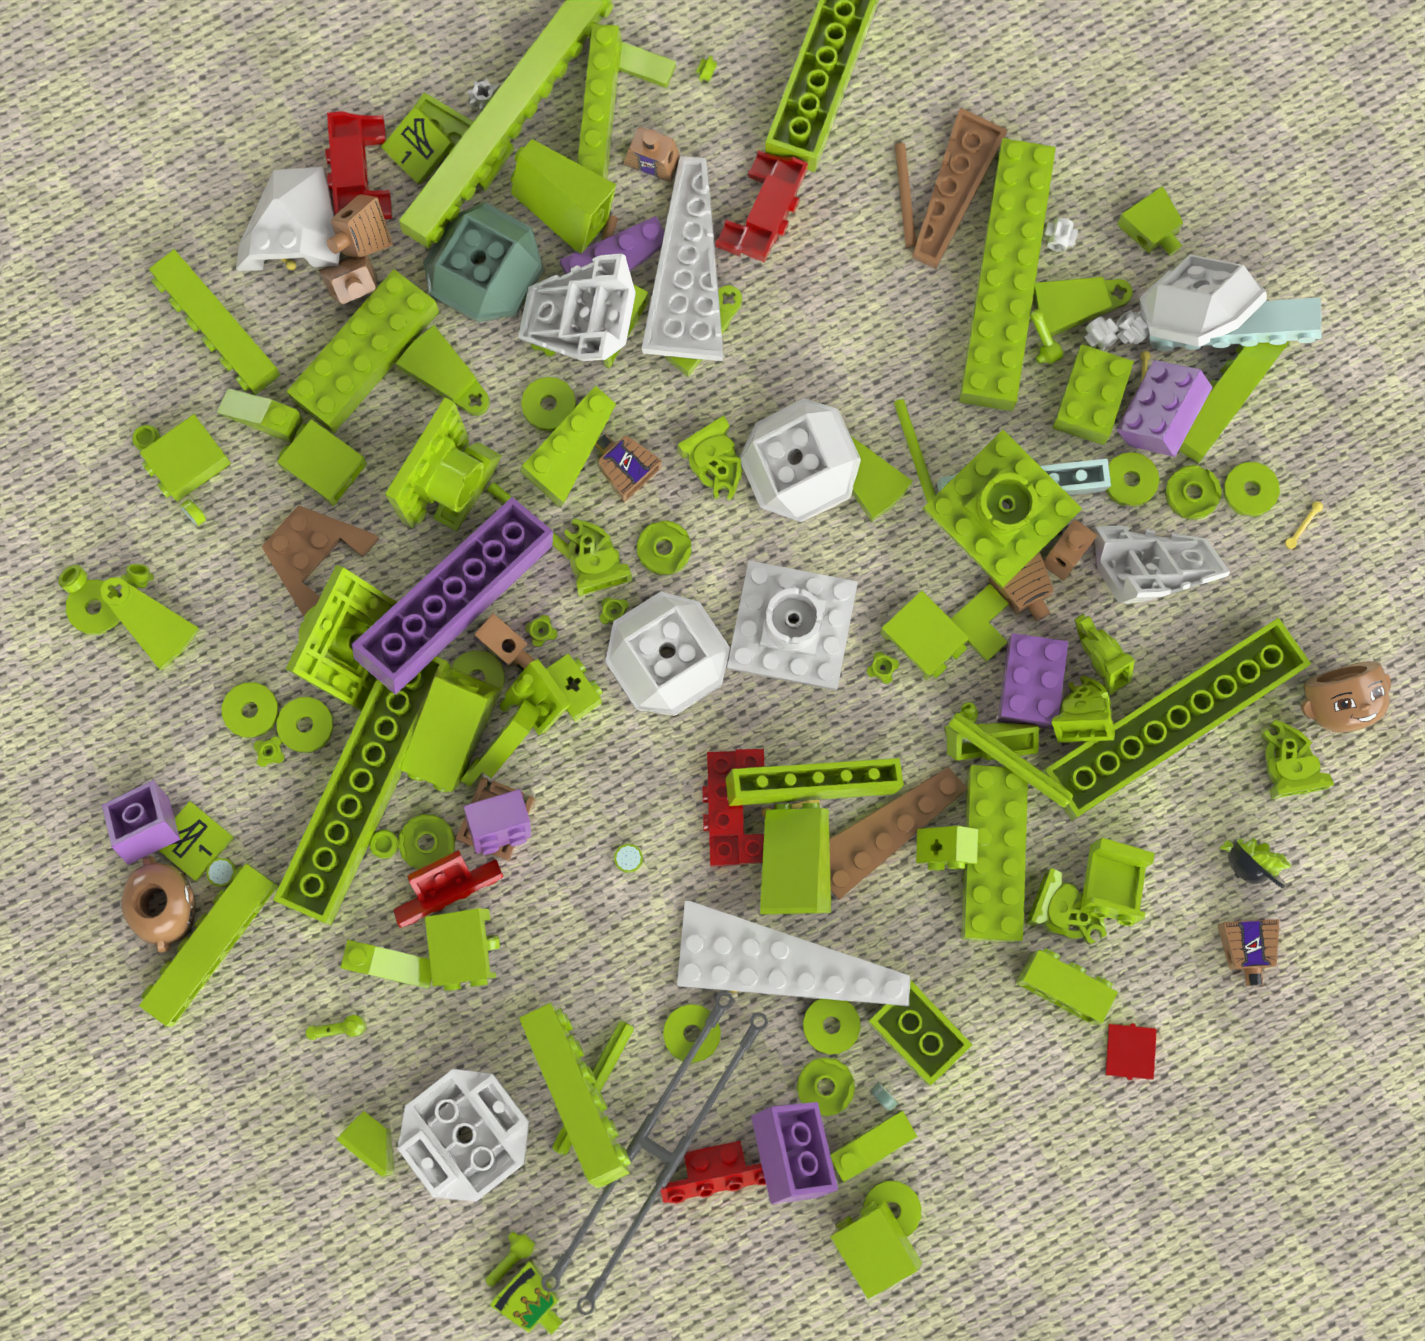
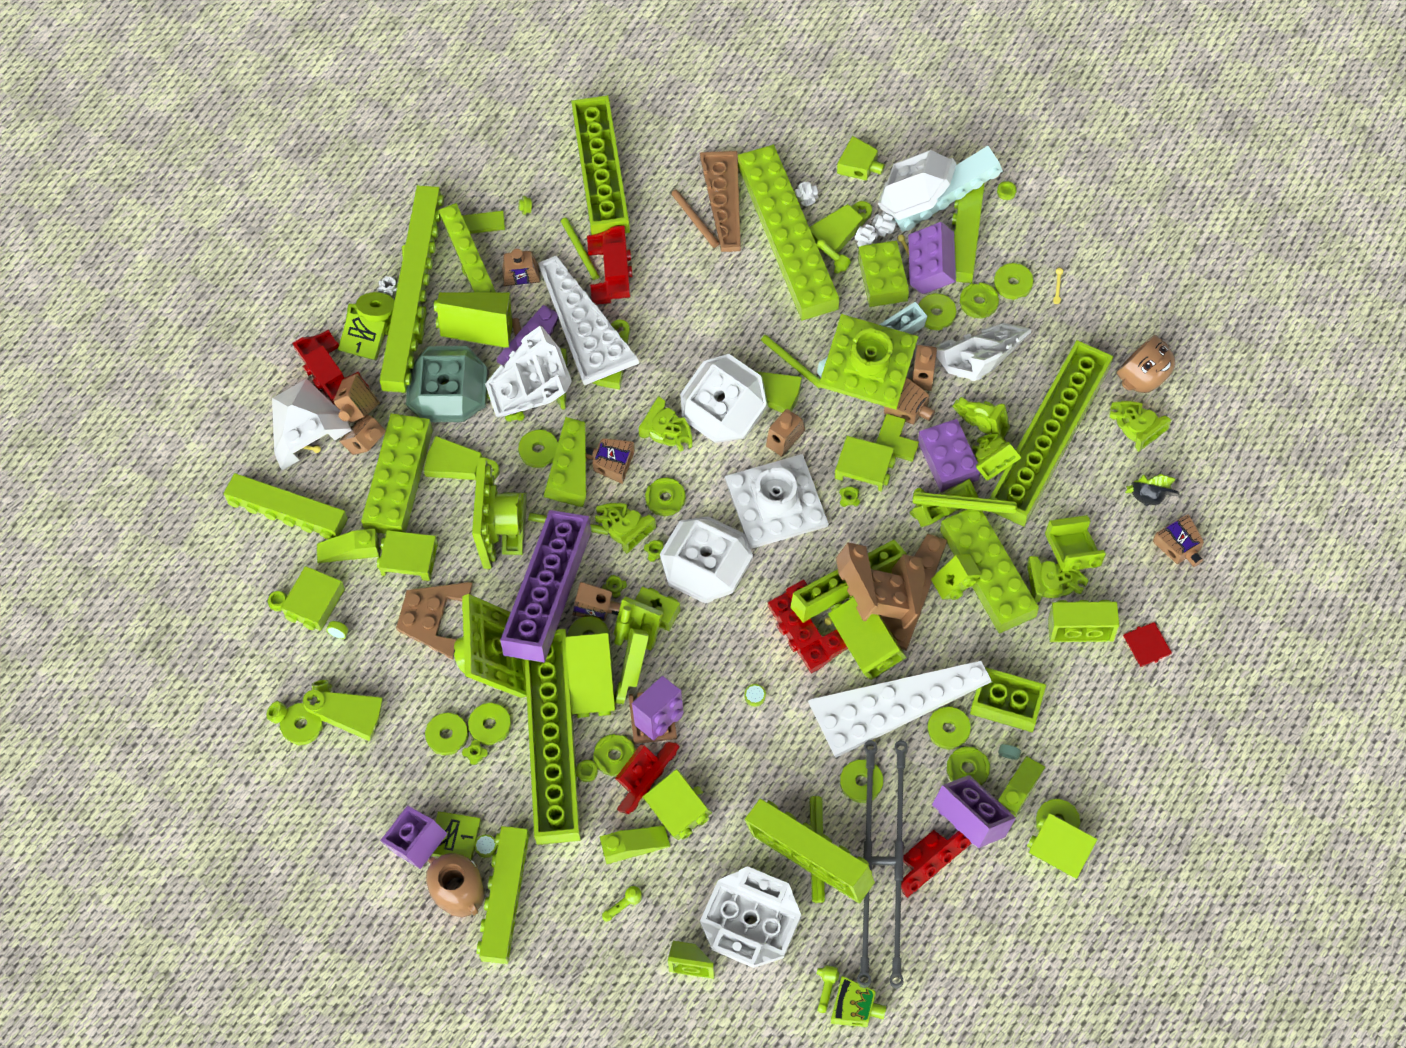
camera: 25 degrees left, 15 degrees down
(453, 103) = (375, 306): none -> lime tile
(742, 162) = (579, 248): none -> lime bar
(841, 824) = (881, 592): none -> medium nougat wedge
(850, 543) = (786, 428): none -> medium nougat torso
(1316, 360) = (1006, 190): none -> lime tile

